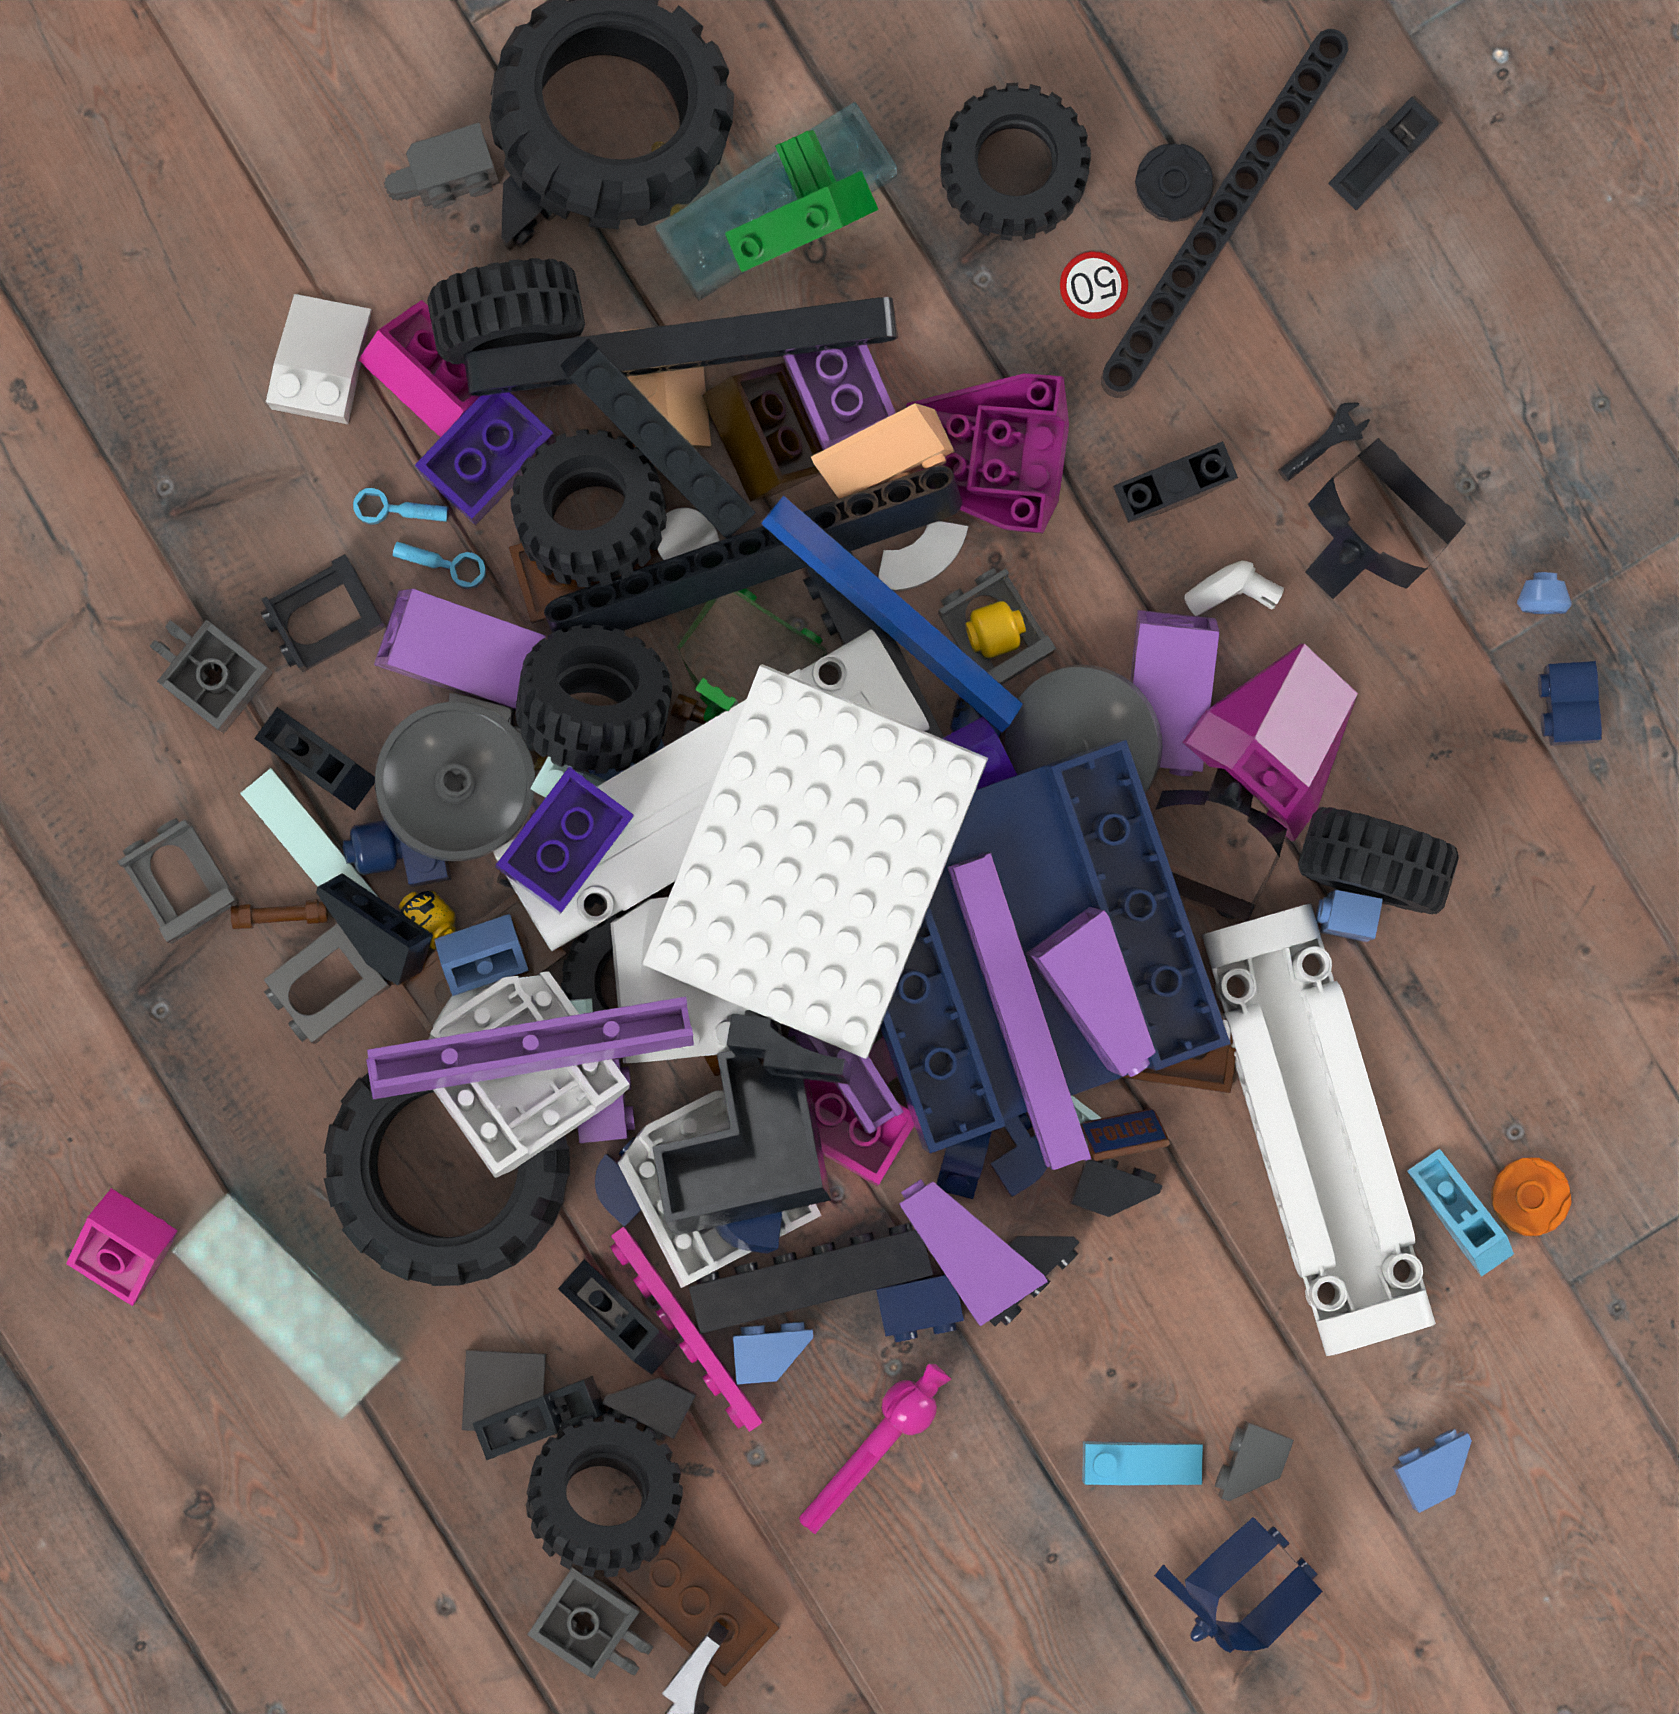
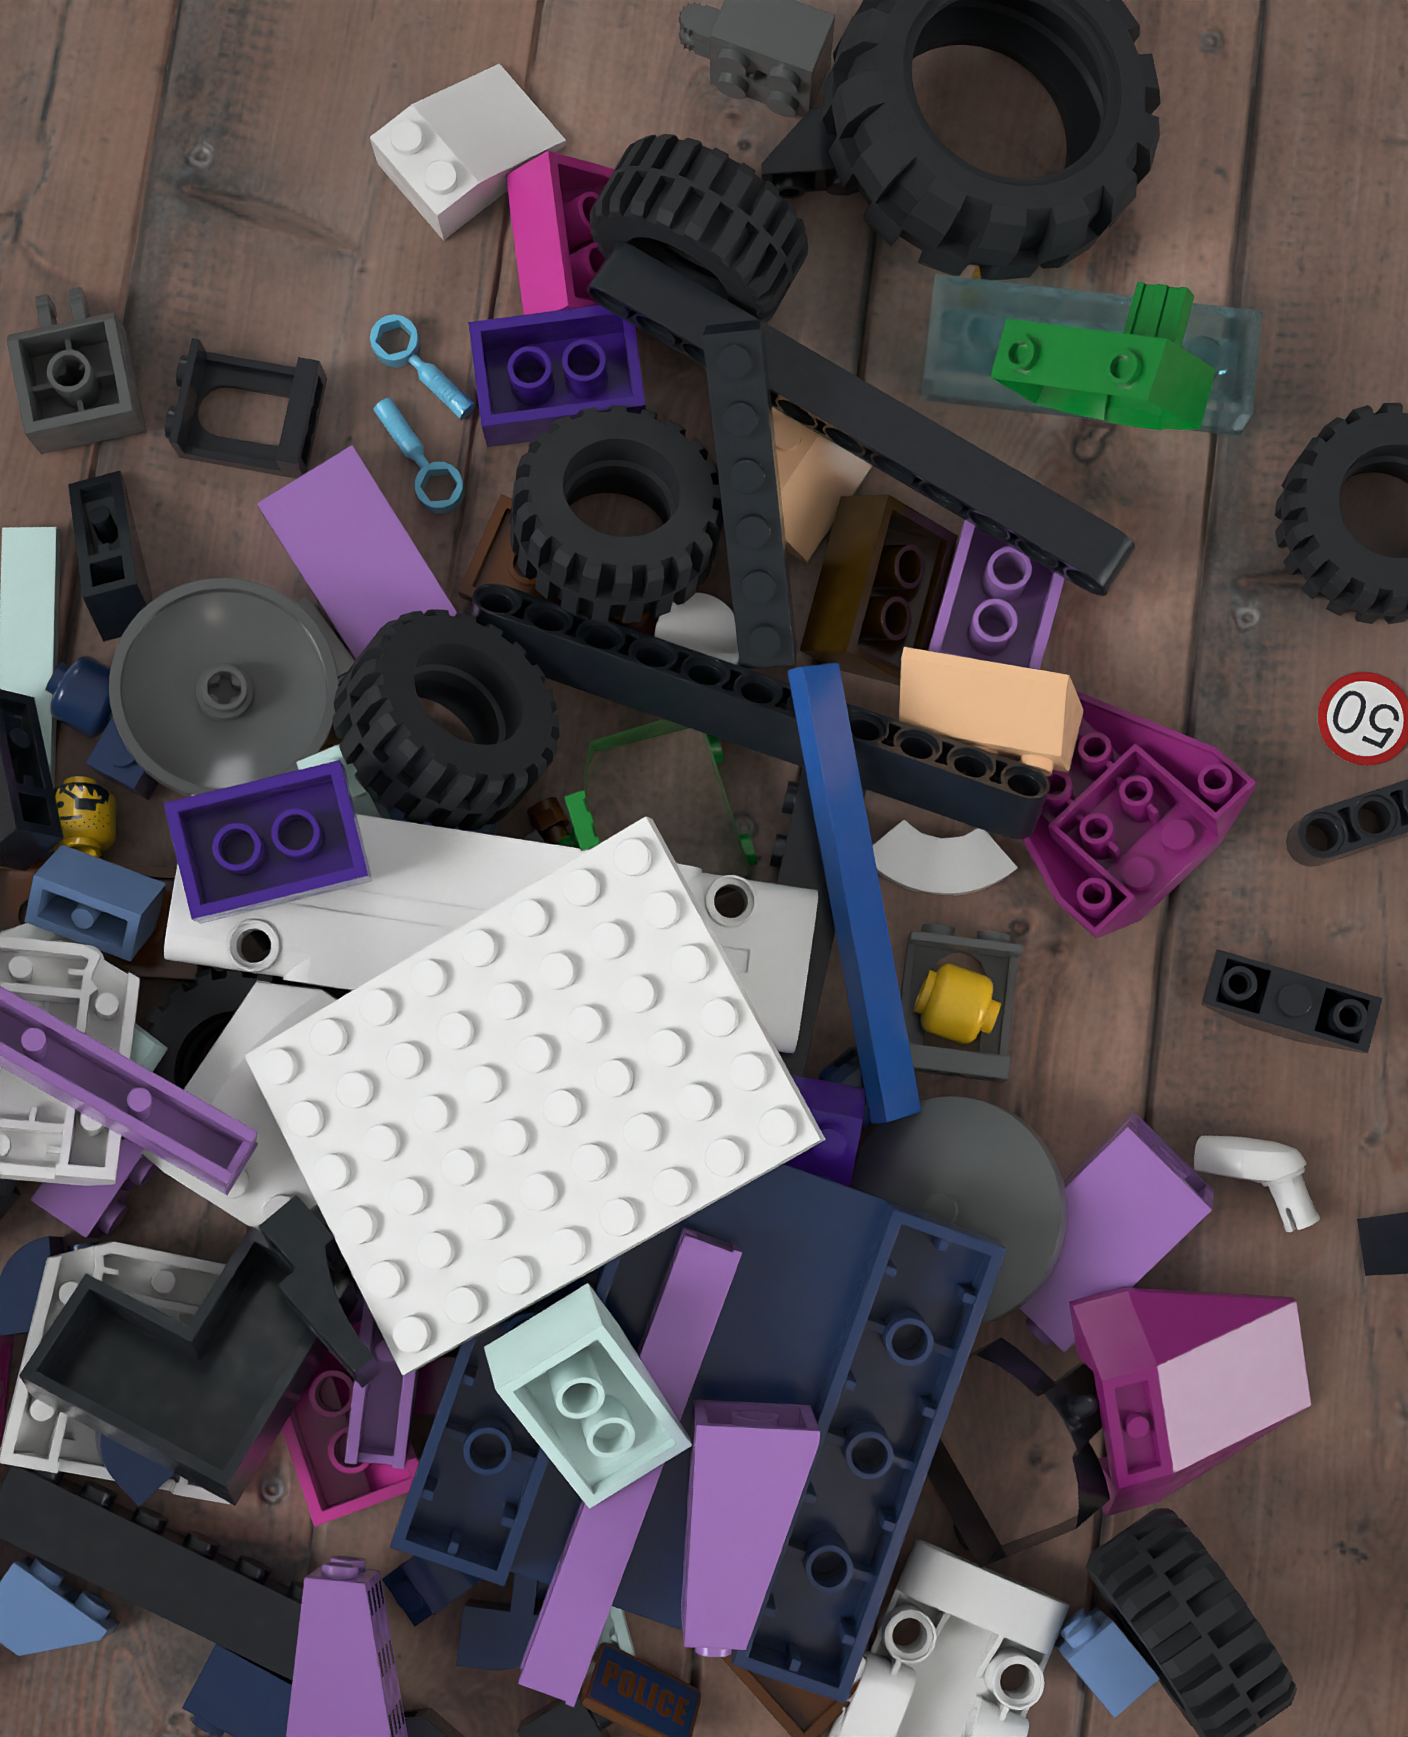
camera: 40 degrees right, 5 degrees down
(970, 991) = (585, 1396): none -> light aqua slope

